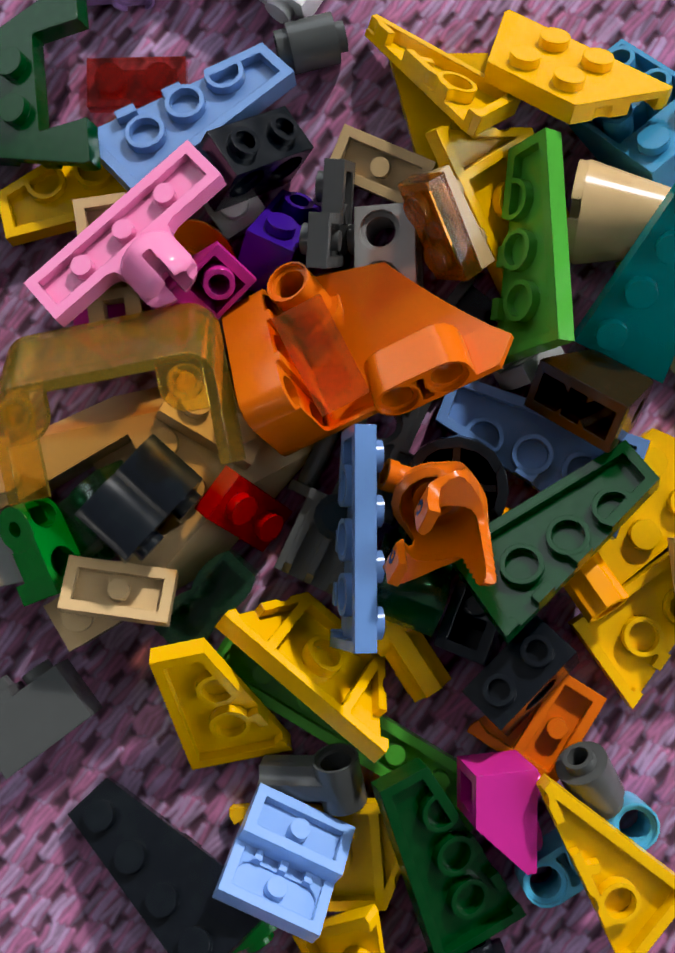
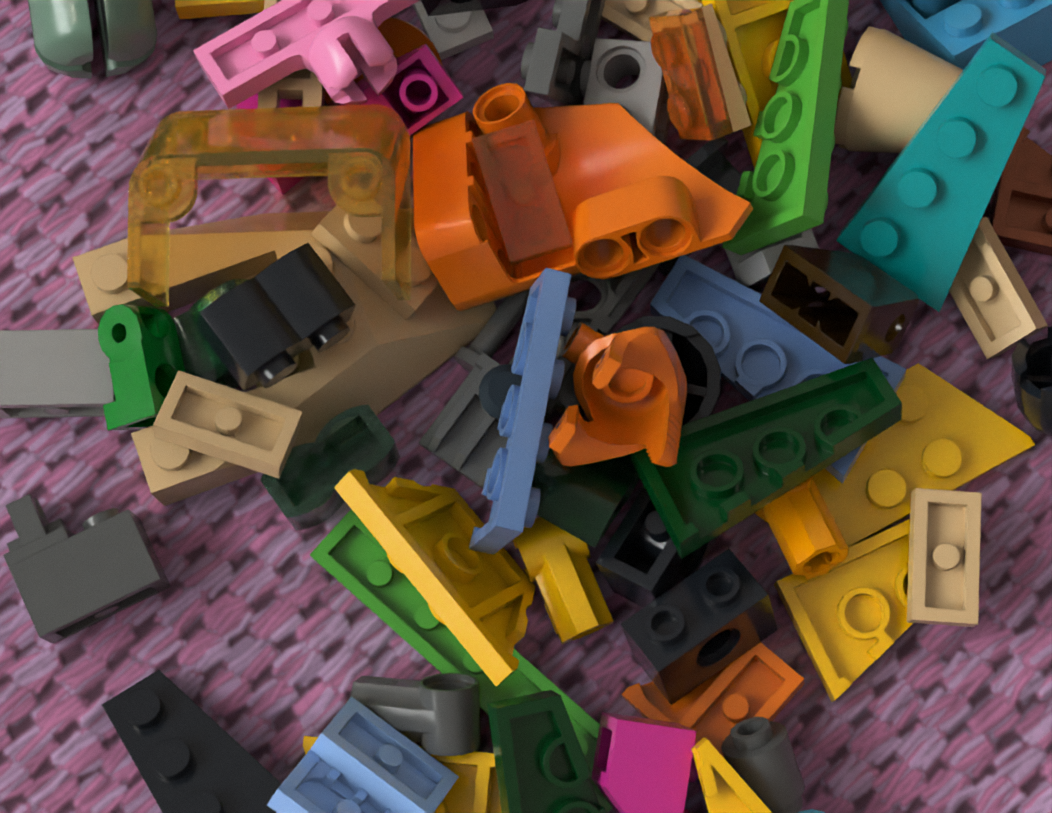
camera: 10 degrees right, 10 degrees down
(213, 707) = (311, 596): yellow wing -> none
(243, 509) = (396, 365): red plate -> none
(275, 236) = (492, 56): dark purple slope -> none

